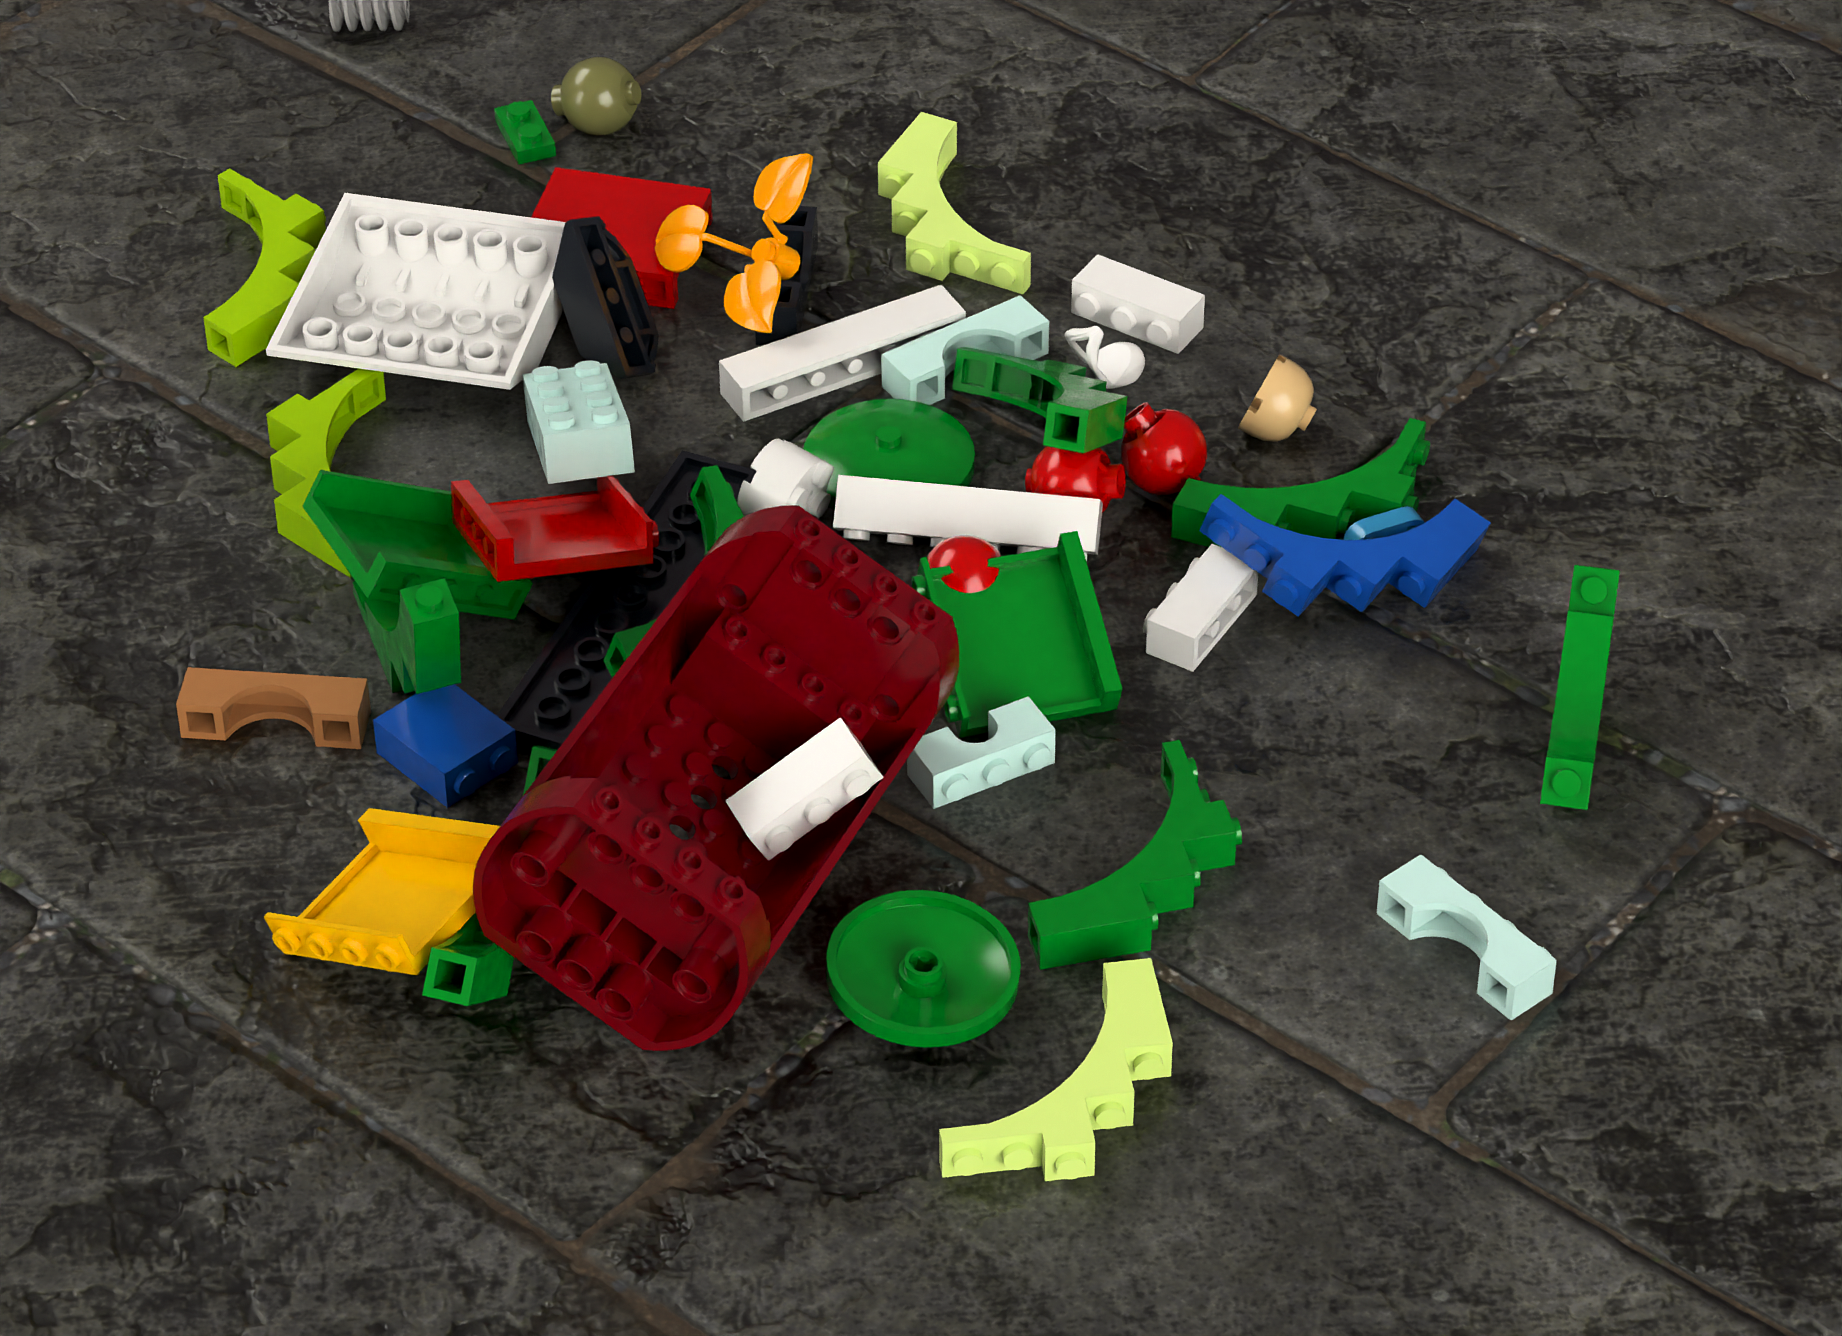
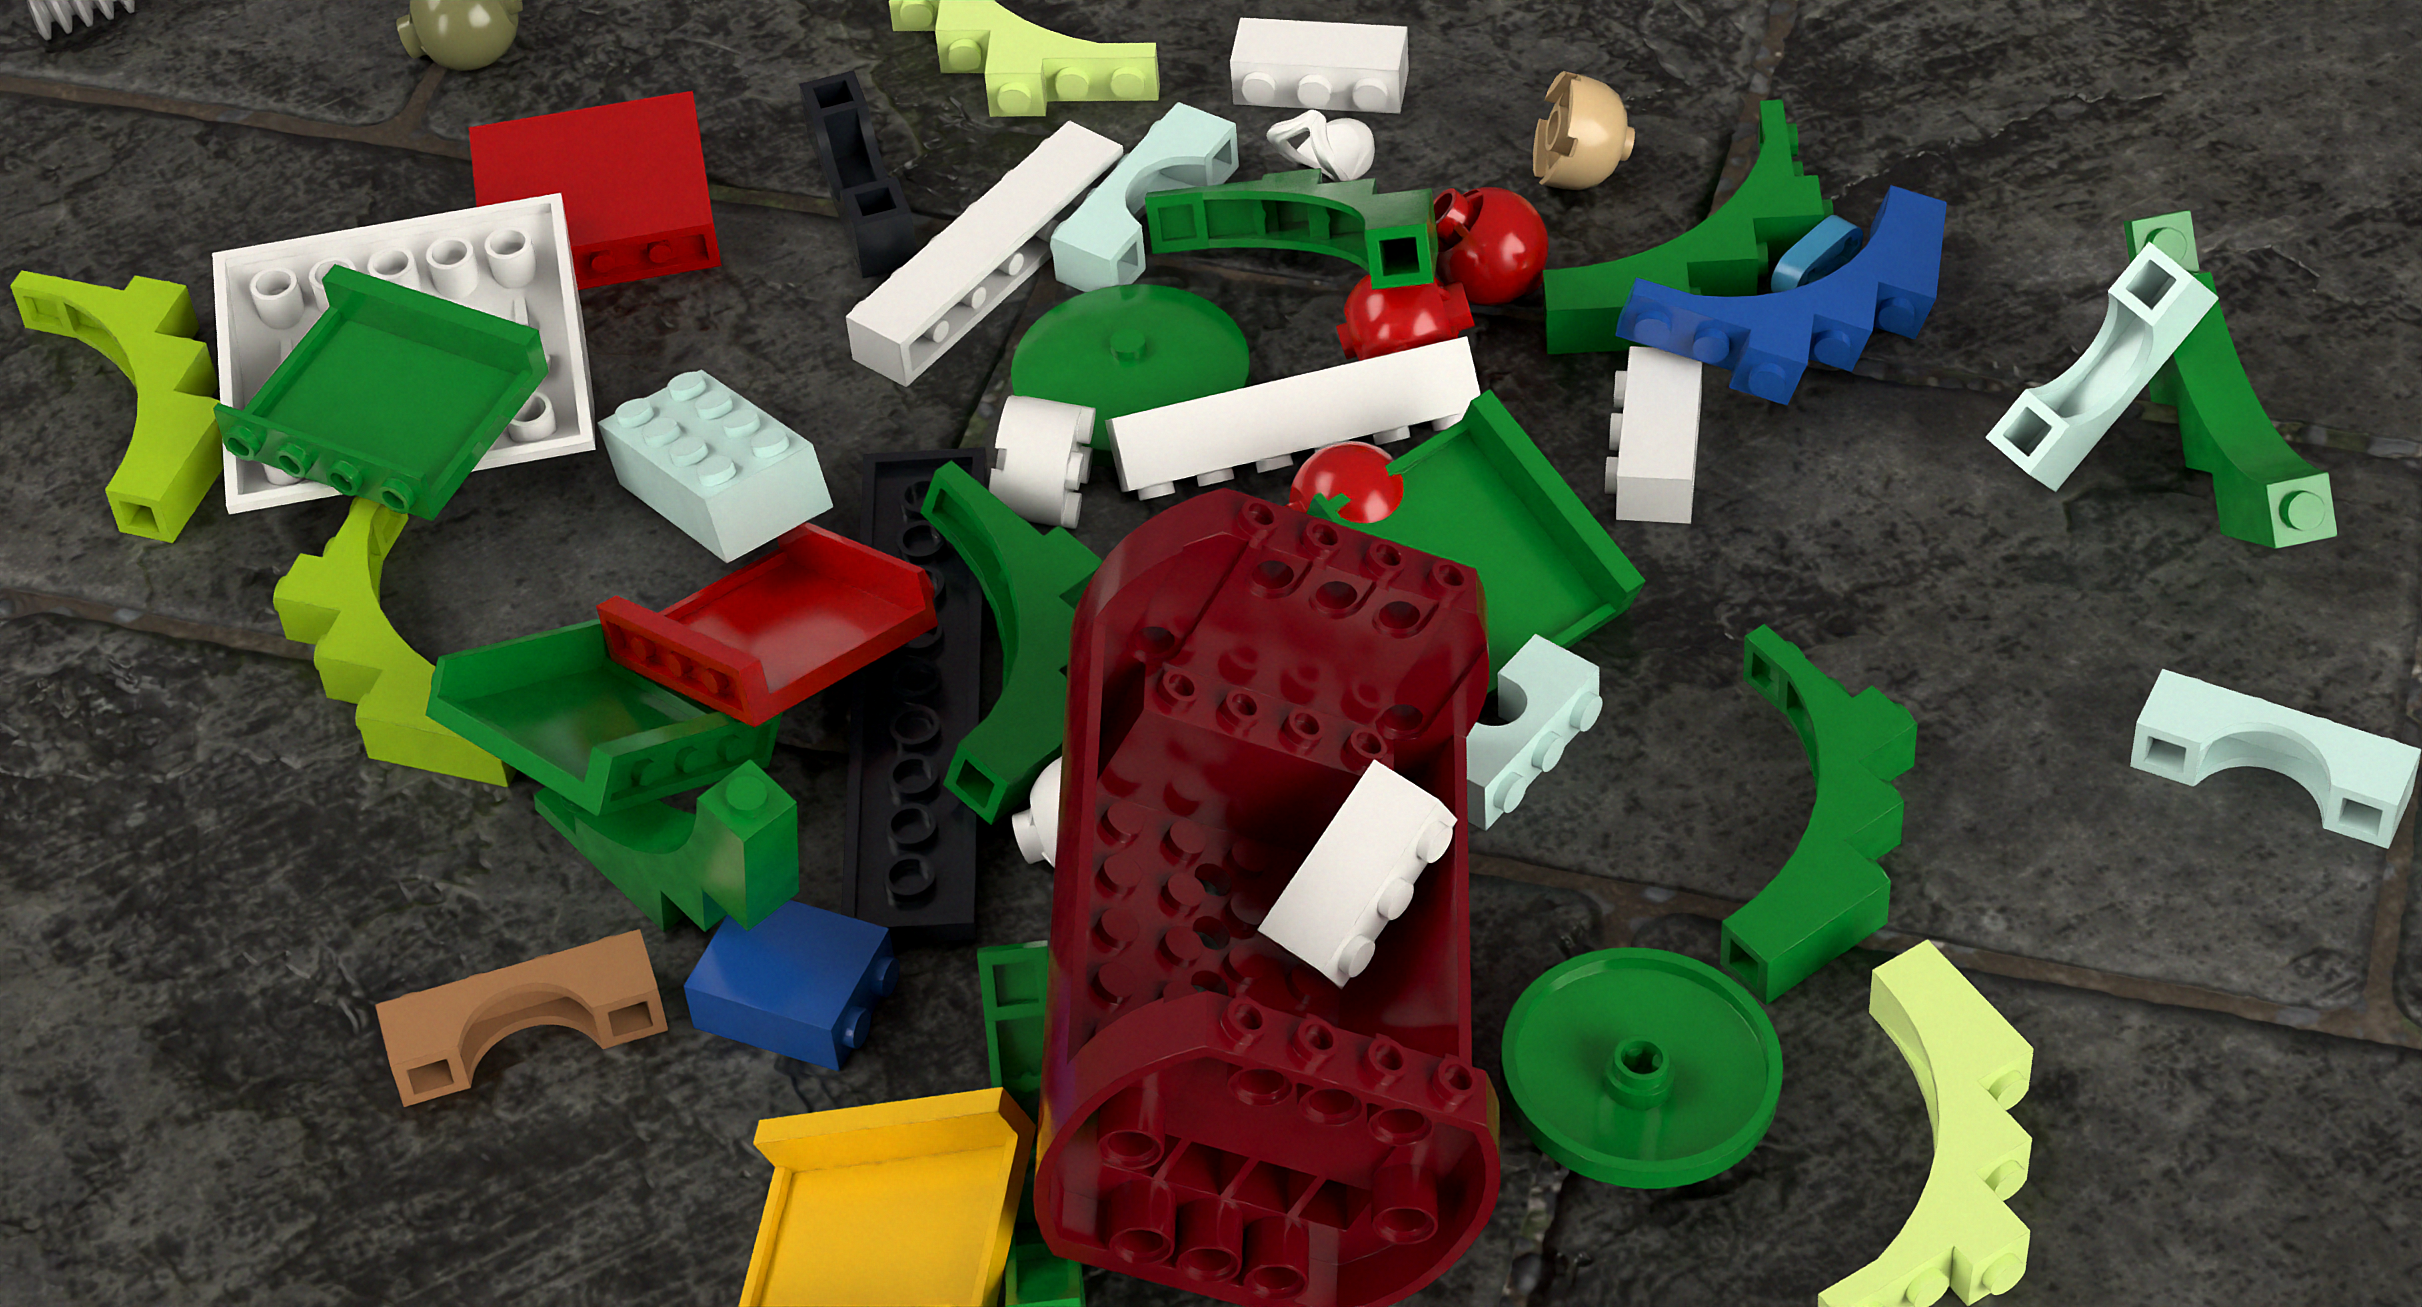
camera: 20 degrees left, 5 degrees up
(398, 313) = (389, 395): none -> green panel
(525, 132) = (384, 94): green plate -> none
(604, 300) = (646, 287): black wedge -> none
(752, 294) = (857, 206): light orange plant -> none
(1462, 686) = (2145, 322): none -> light aqua arch

